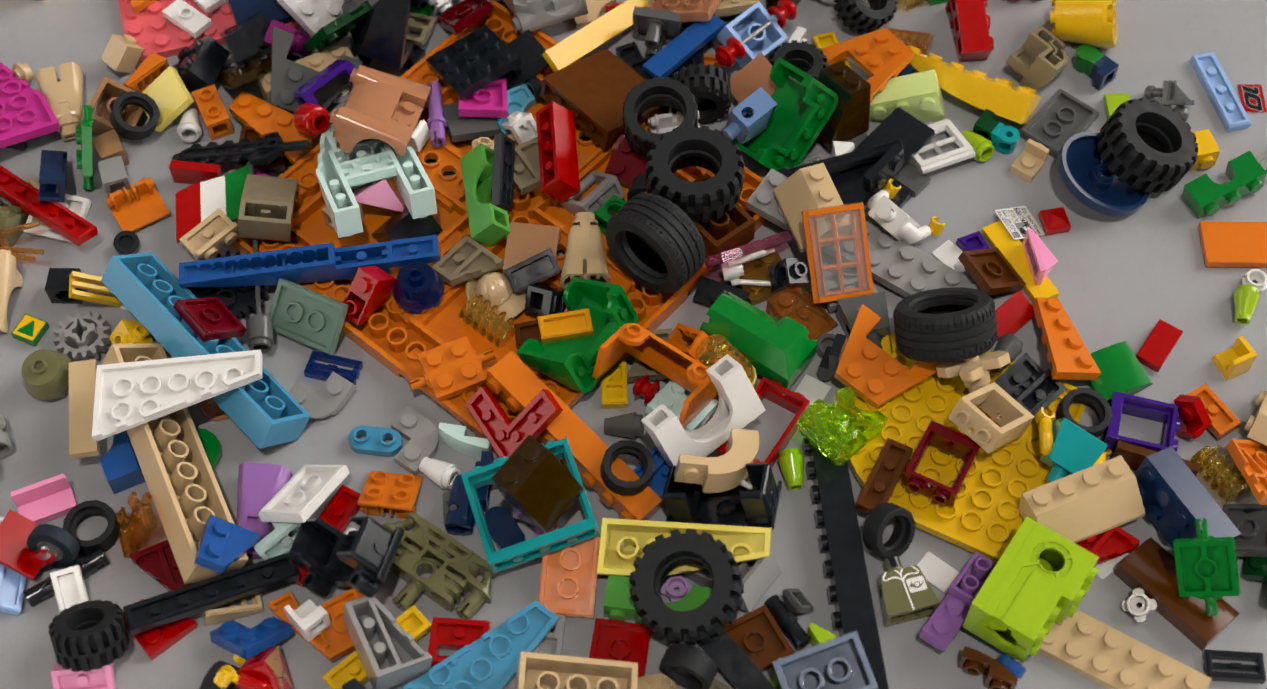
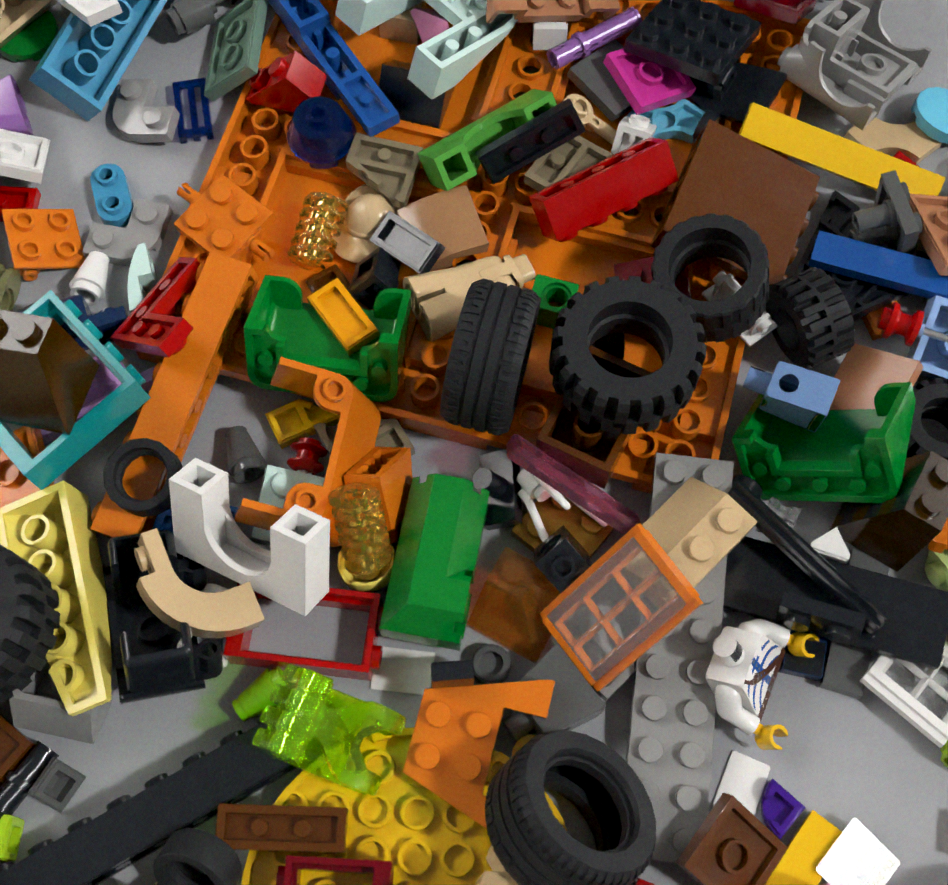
camera: 65 degrees right, 10 degrees up
(607, 187) = (575, 269): light grey tile -> none

